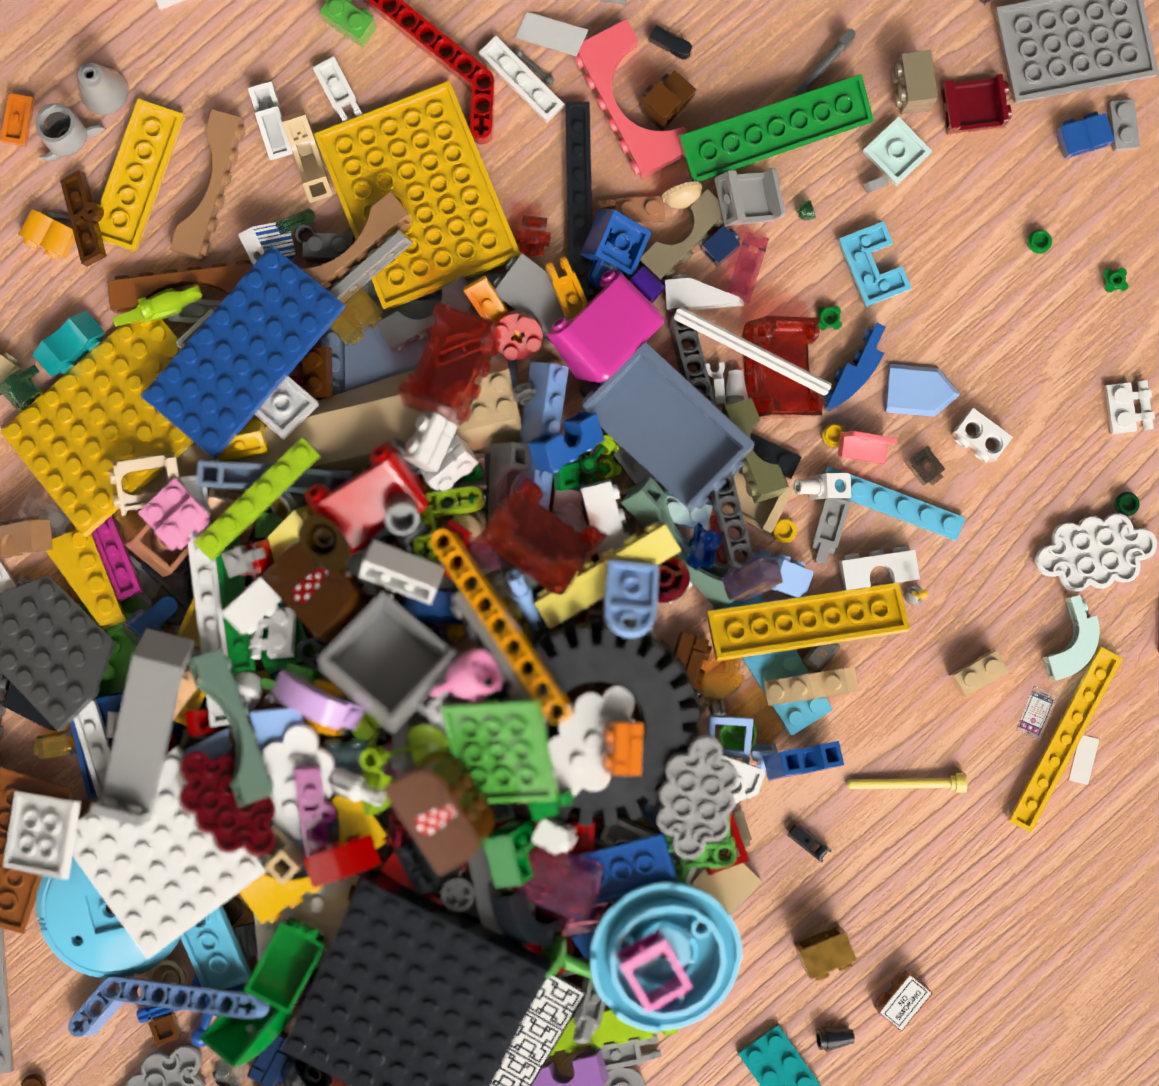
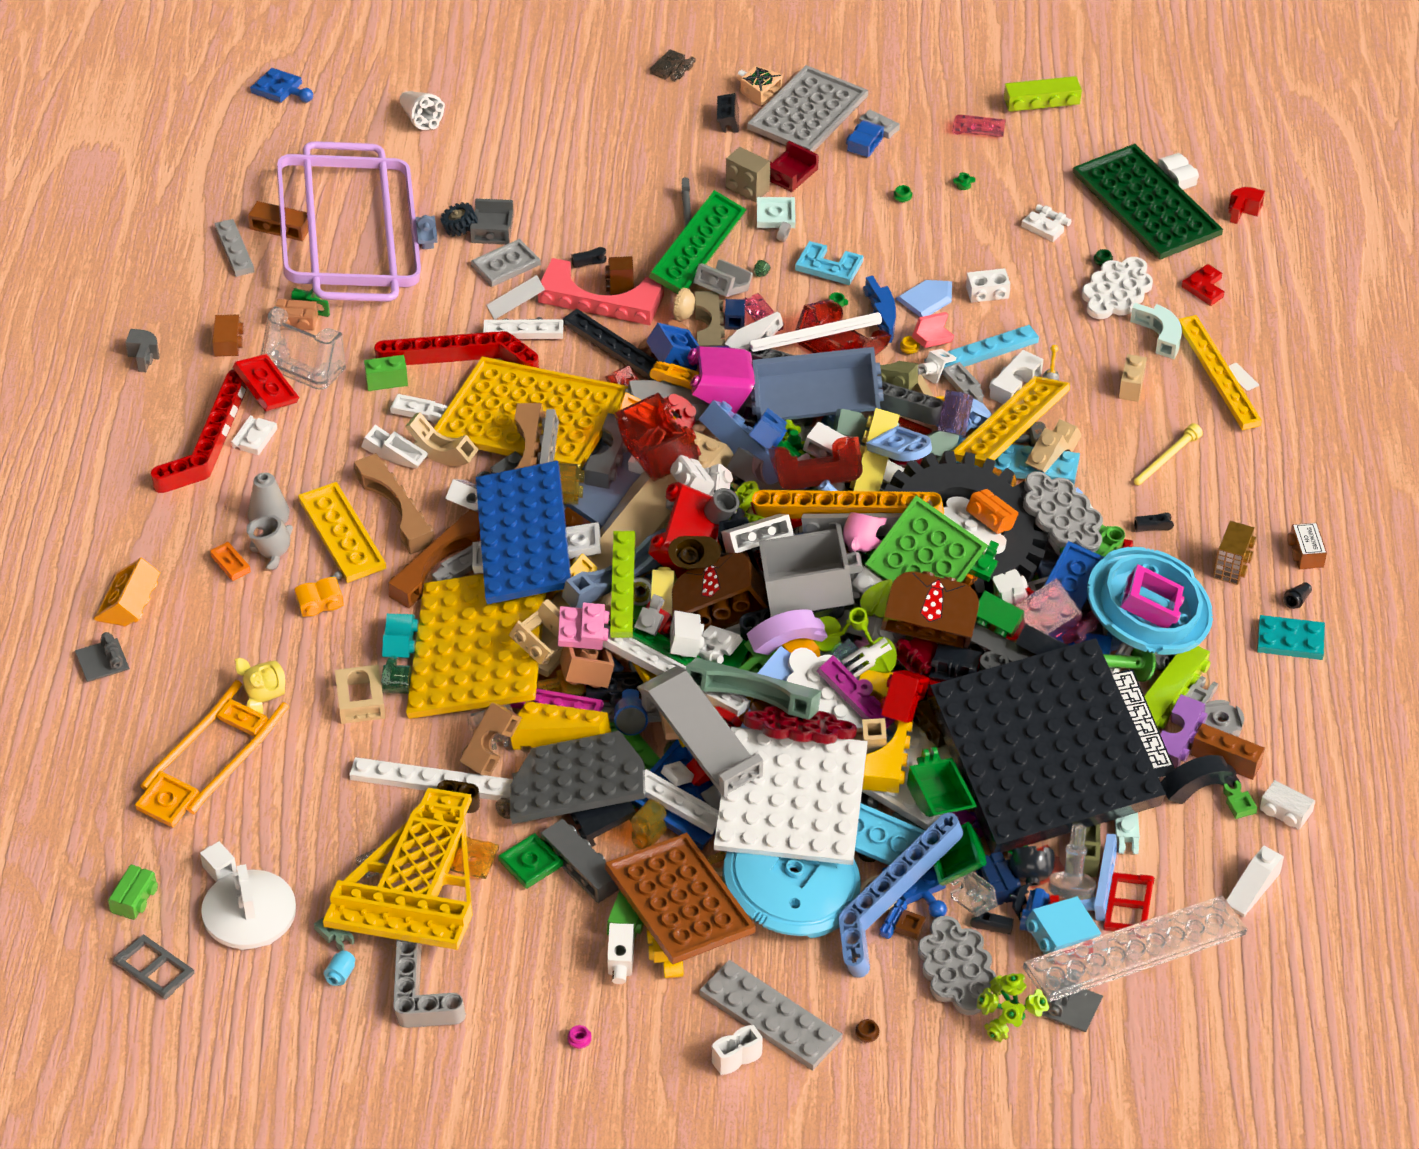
camera: 45 degrees left, 40 degrees down
(41, 834) = (702, 849): white plate -> none
(84, 218) = (334, 565): reddish brown hinge -> none
(160, 305) = (439, 565): lime animal -> none
(294, 221) = (470, 475): clear green piece -> none
(524, 393) = (715, 429): dark grey plate -> none
(589, 1013) = (1146, 681): light grey hinge -> none
(703, 547) = (908, 416): clear blue hips -> none
(803, 761) = (1097, 476): blue arch -> none
(917, 463) = (977, 320): clear smoke brick -> none
(1036, 713) = (1188, 375): clear tile -> none

